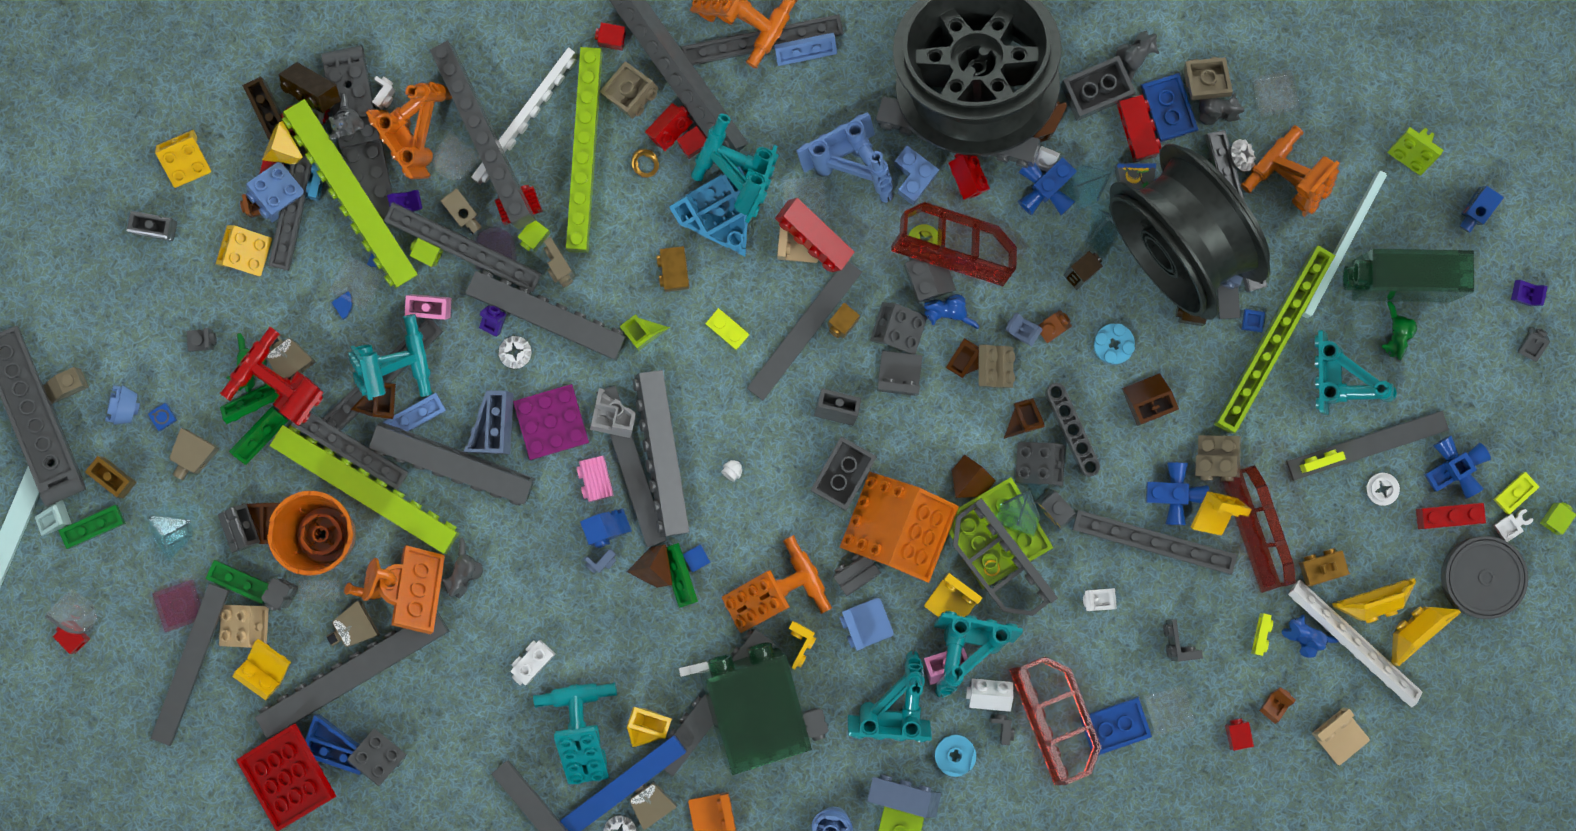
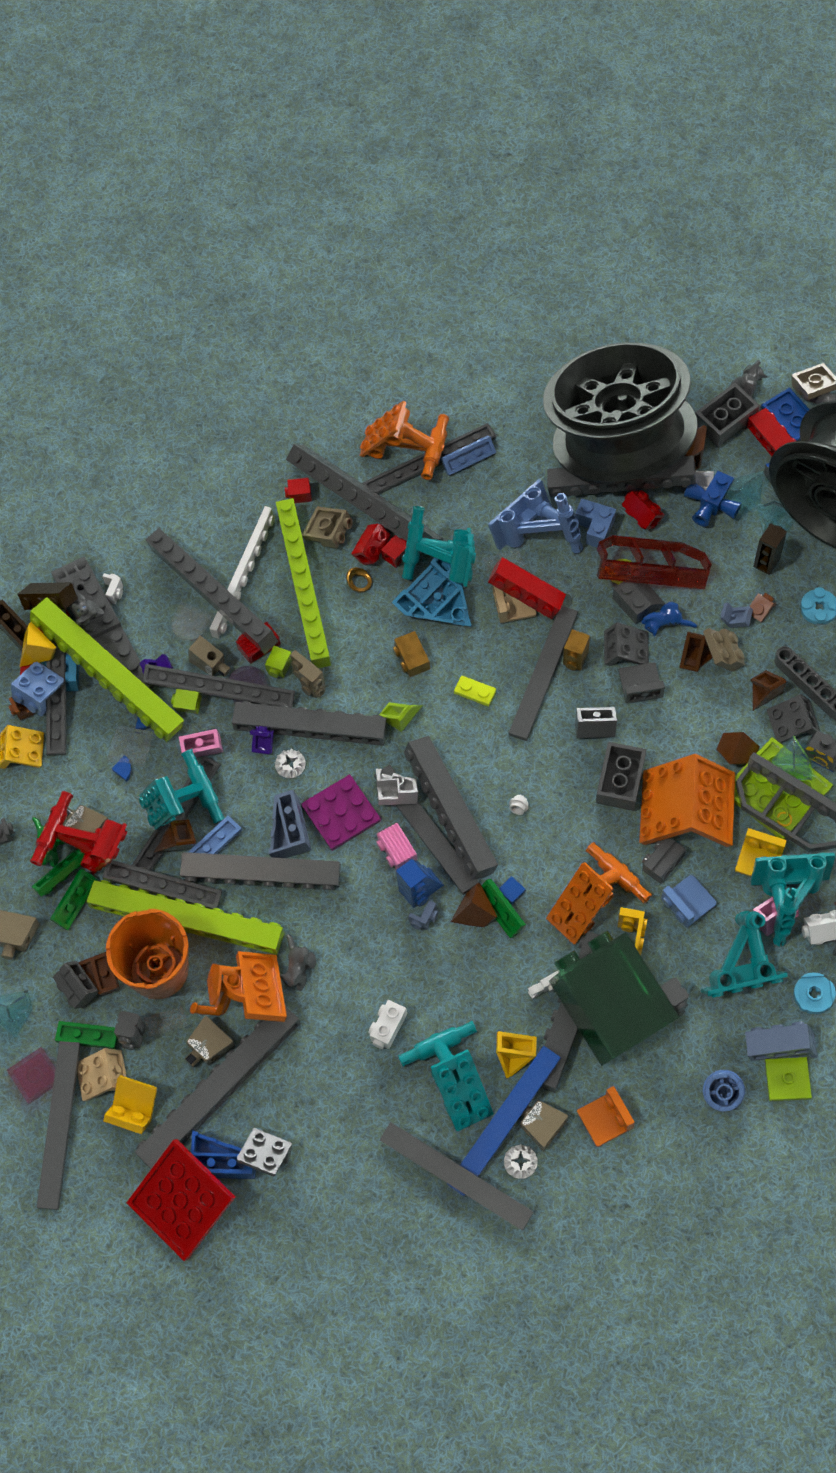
camera: 10 degrees left, 20 degrees down
(395, 131) = (131, 605): orange plate -> none

